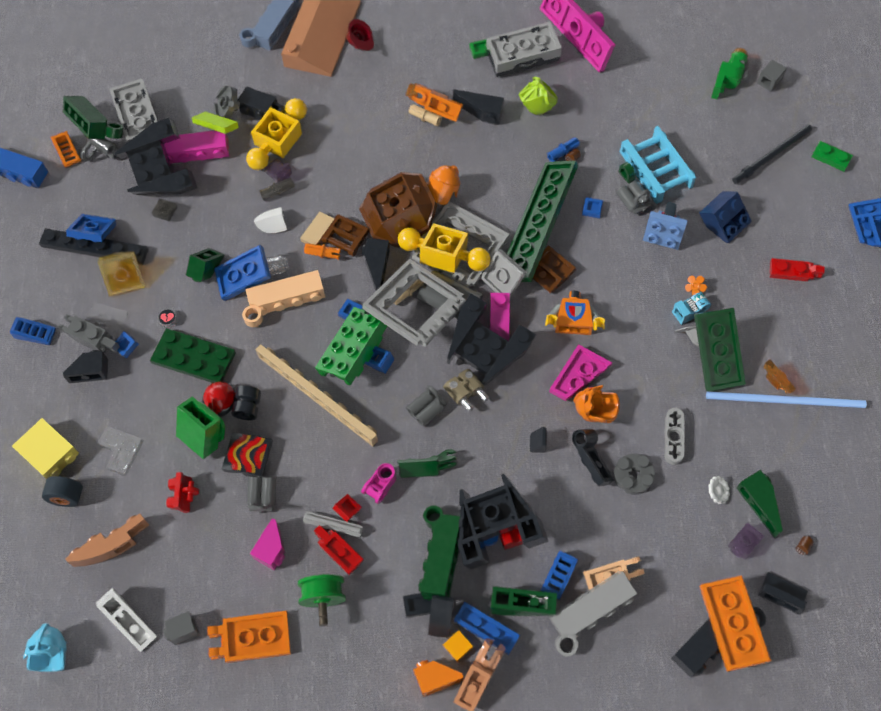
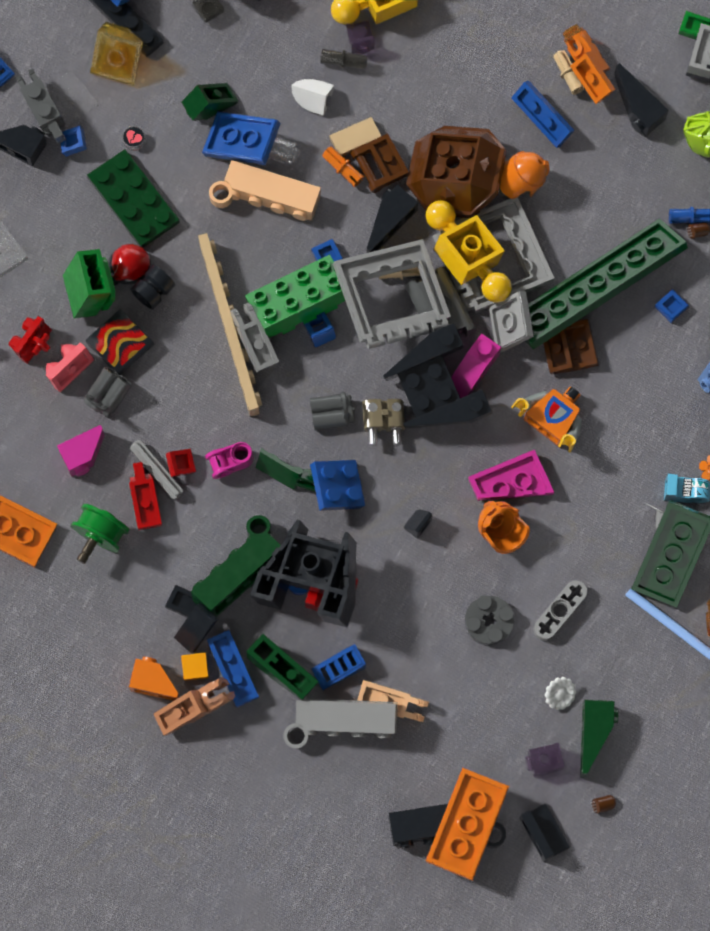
camera: 30 degrees right, 10 degrees up
(222, 493) = (73, 363): none -> coral tile
(341, 390) = (254, 339): none -> light grey hinge
(427, 146) = (542, 114): none -> blue plate
(467, 451) = (337, 485): none -> blue plate
(590, 457) = (460, 557): black plate -> none

